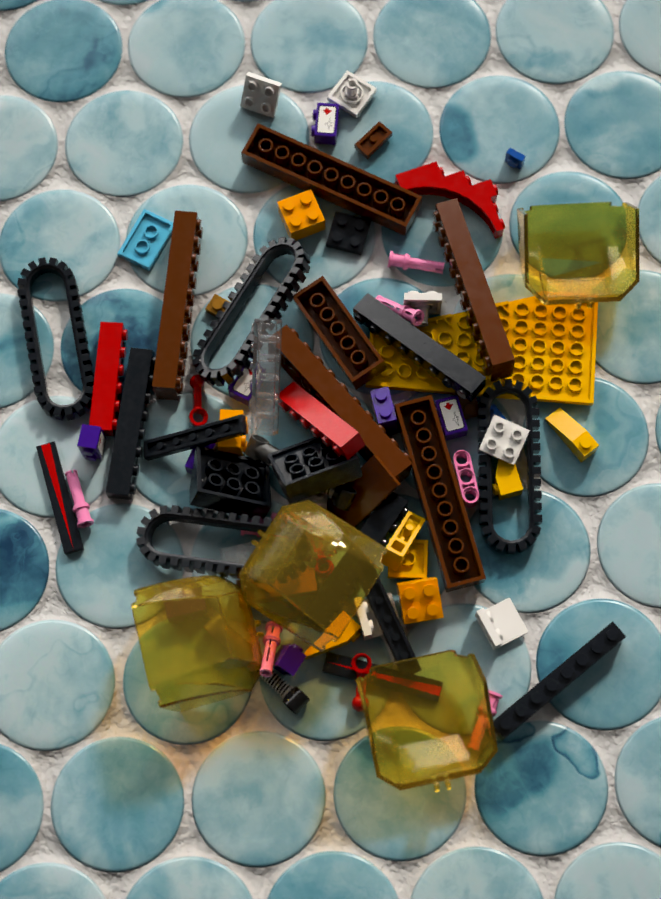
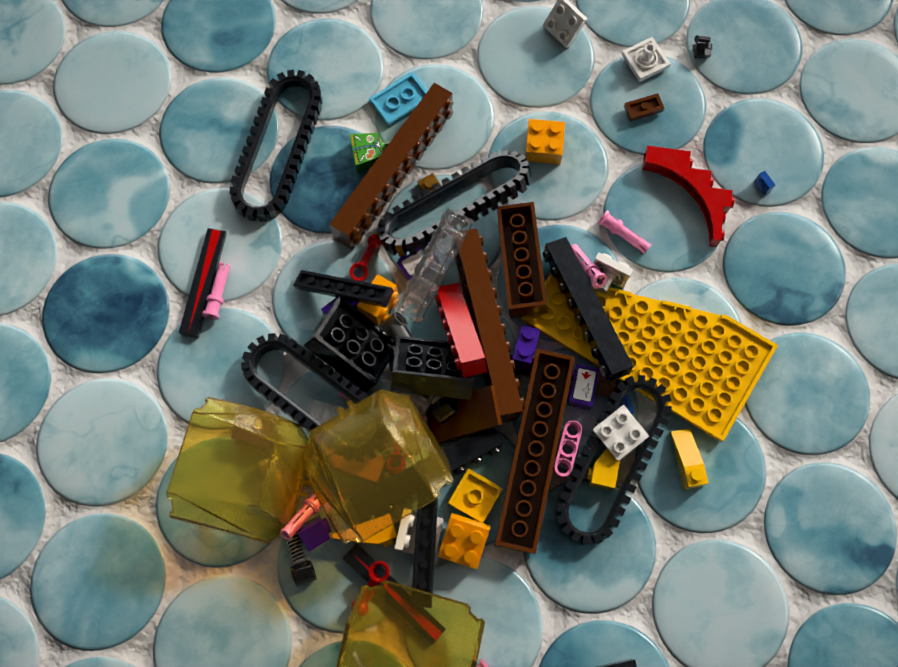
camera: 25 degrees right, 0 degrees up
(91, 442) = (253, 247): dark purple brick -> none
(107, 376) = (299, 200): red brick -> none
(130, 424) = (295, 251): black brick -> none
(144, 302) = (366, 149): none -> bright green torso
(326, 123) = (609, 73): brick -> none
(331, 179) = (589, 123): reddish brown brick -> none
(348, 233) = (578, 177): black plate -> none
(396, 58) = (703, 47): none -> black piece
(402, 540) = (477, 477): yellow slope -> none
(474, 290) = (664, 283): reddish brown brick -> none
(501, 623) = (529, 602): white bracket -> none
(579, 252) = (782, 295): clear yellow windscreen -> none

